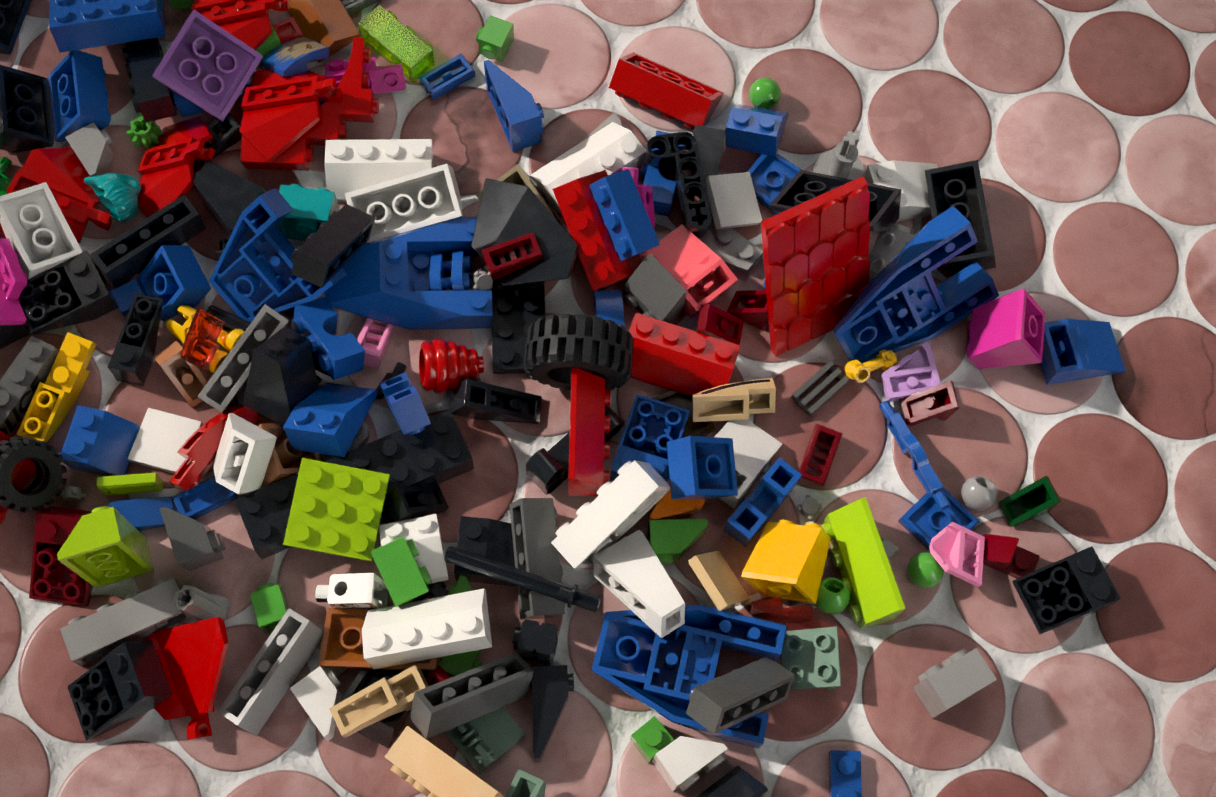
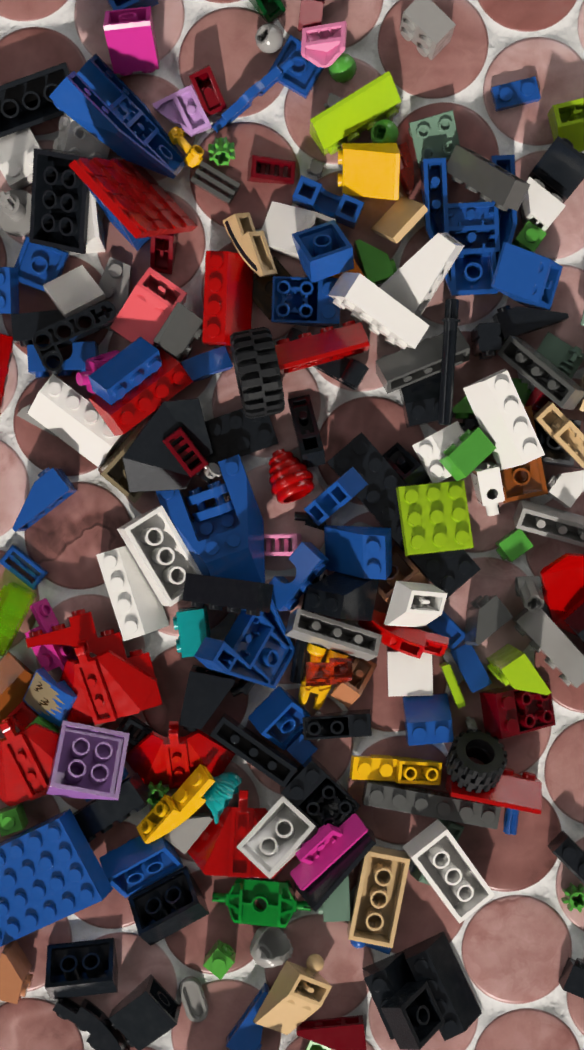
camera: 100 degrees left, 20 degrees up
(118, 140) = (174, 810): none -> yellow slope
(601, 713) = (526, 277): none -> blue slope
(719, 324) = (189, 274): dark red slope -> none
(854, 401) = (221, 151): none -> bright green gear

